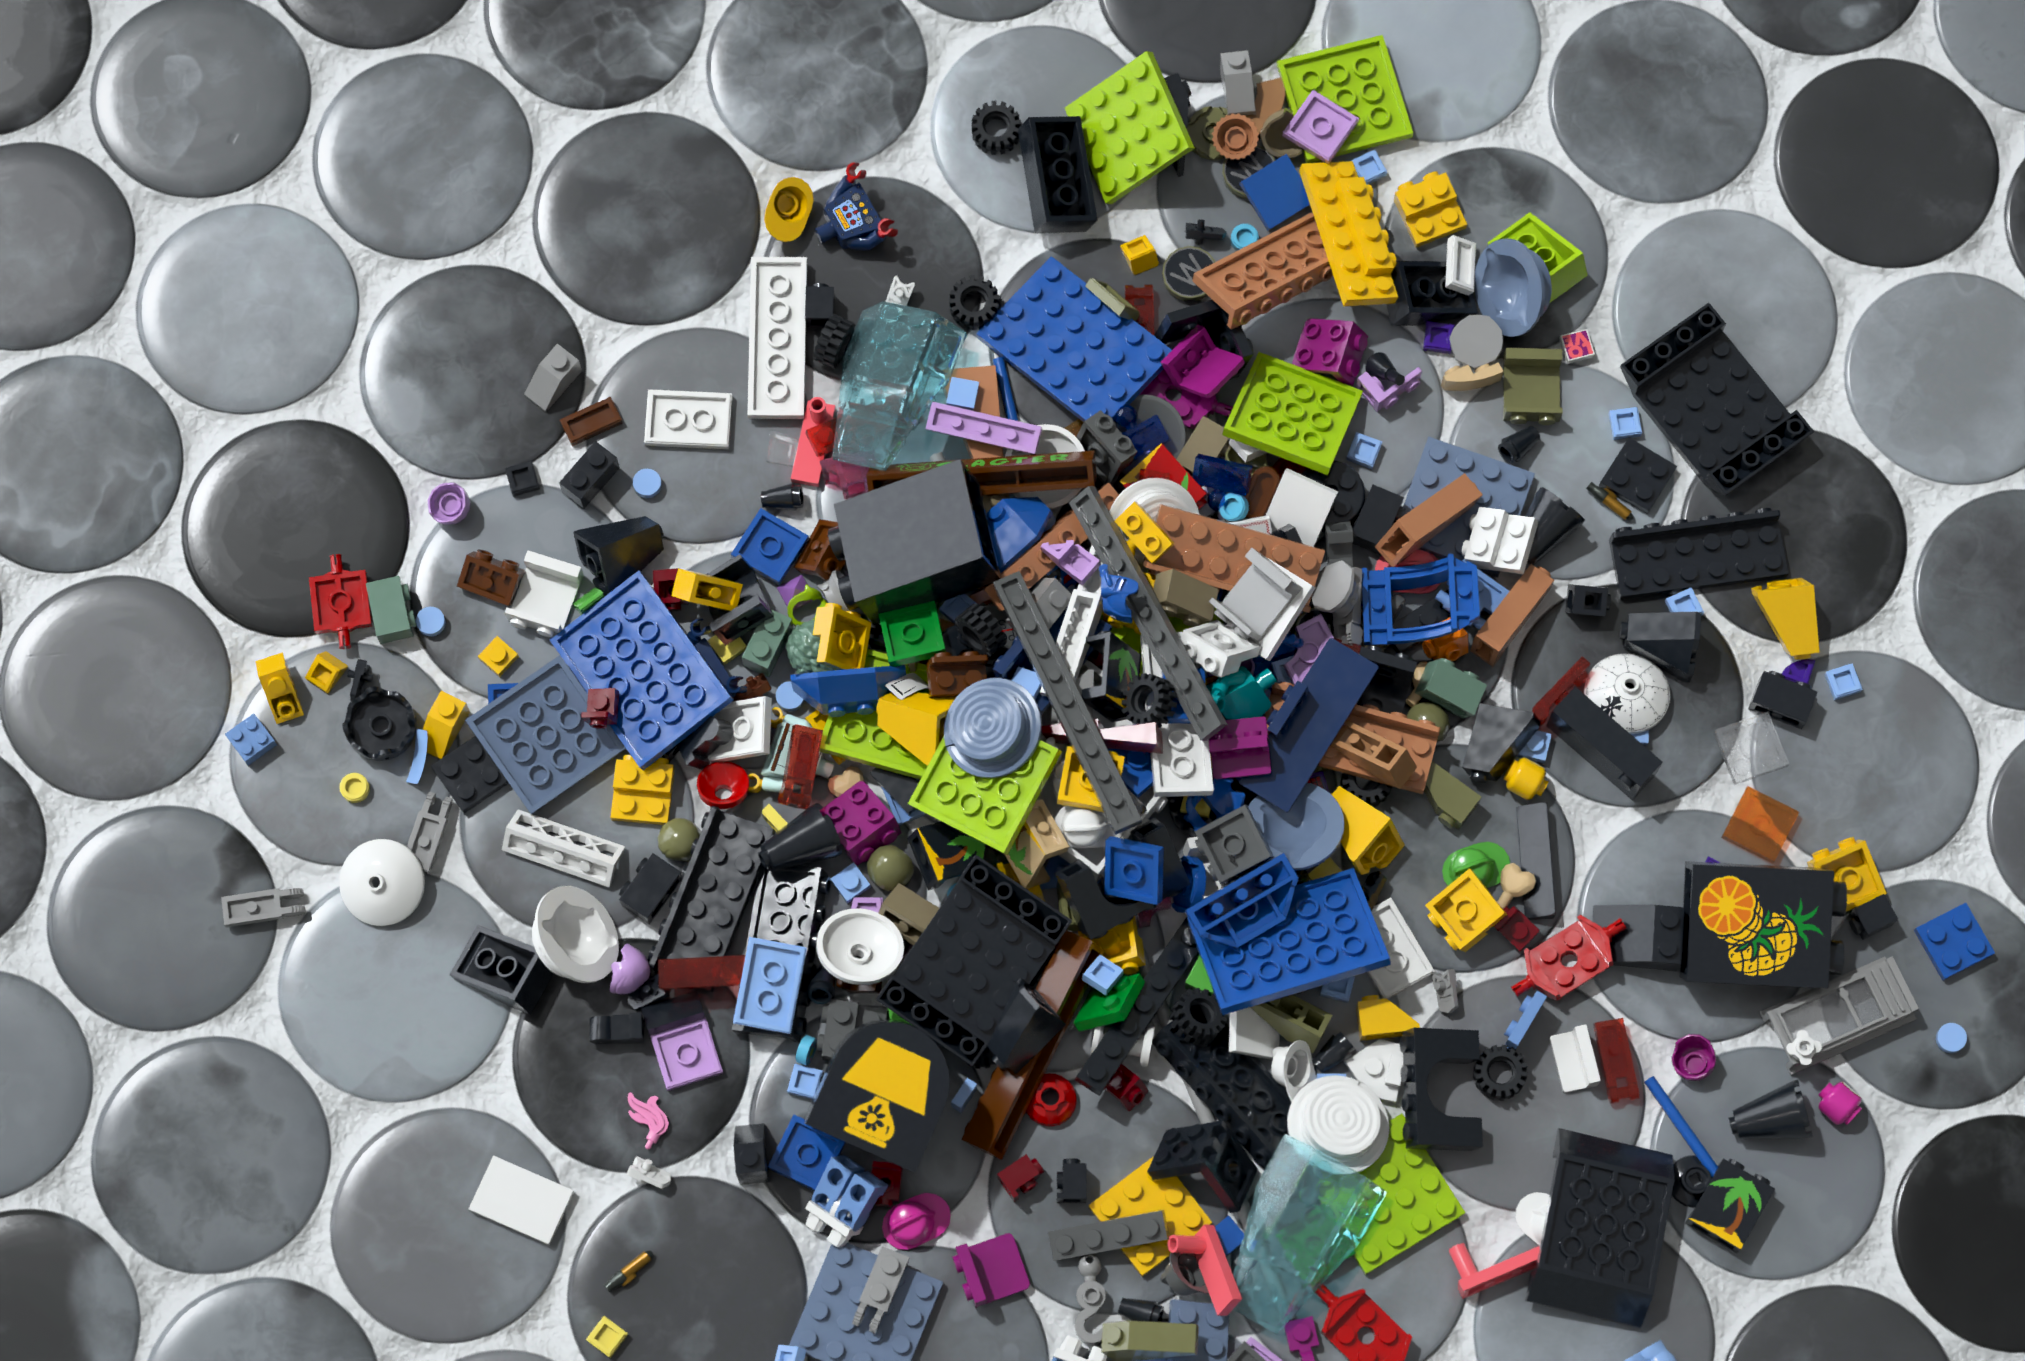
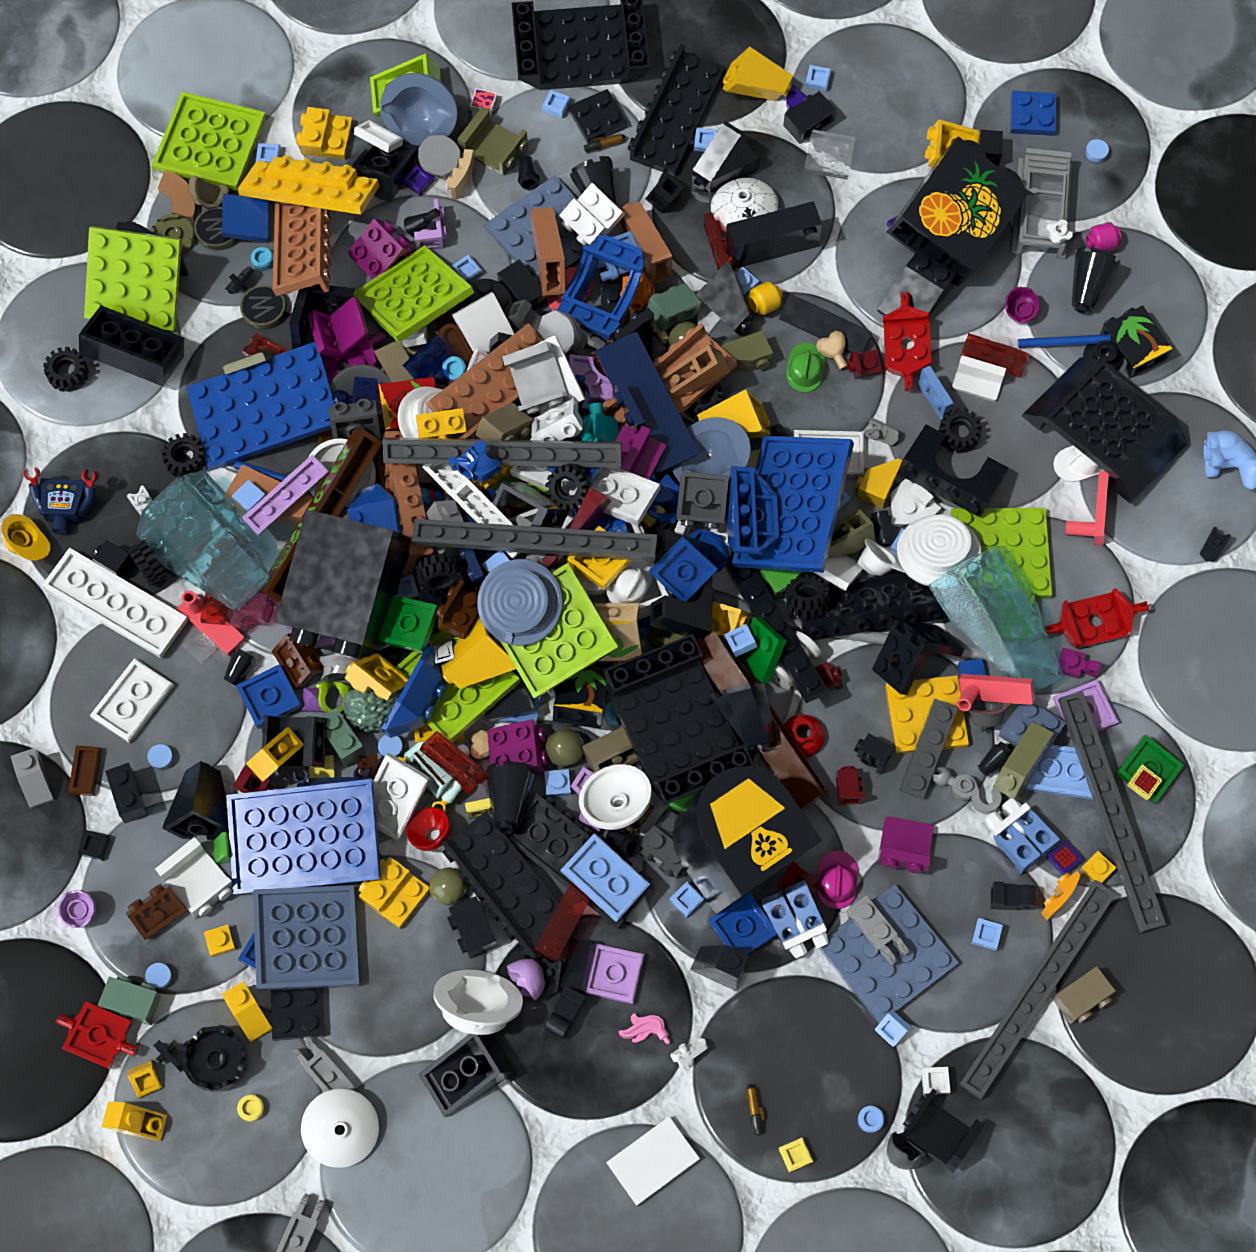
camera: 60 degrees left, 5 degrees down
(250, 739) = (159, 1167): medium blue piece -> none
(419, 756) = (260, 1043): light blue sticker -> none
(560, 850) = (401, 977): white fence -> none
(601, 707) = (314, 881): dark red bracket -> none
(705, 741) = (388, 821): black leg -> none
(806, 1050) = (664, 883): medium azure tile -> none
(1072, 559) = (427, 484): lavender slope -> none
(1140, 254) = (226, 330): yellow slope -> none
(1235, 136) = (187, 218): nougat hat -> none
(1237, 83) = (149, 197): light grey slope -> none
(1320, 127) = (219, 163): lavender tile -> none
(1465, 911) = (836, 385): yellow plate -> none
(1760, 824) = (884, 180): clear orange tile -> none

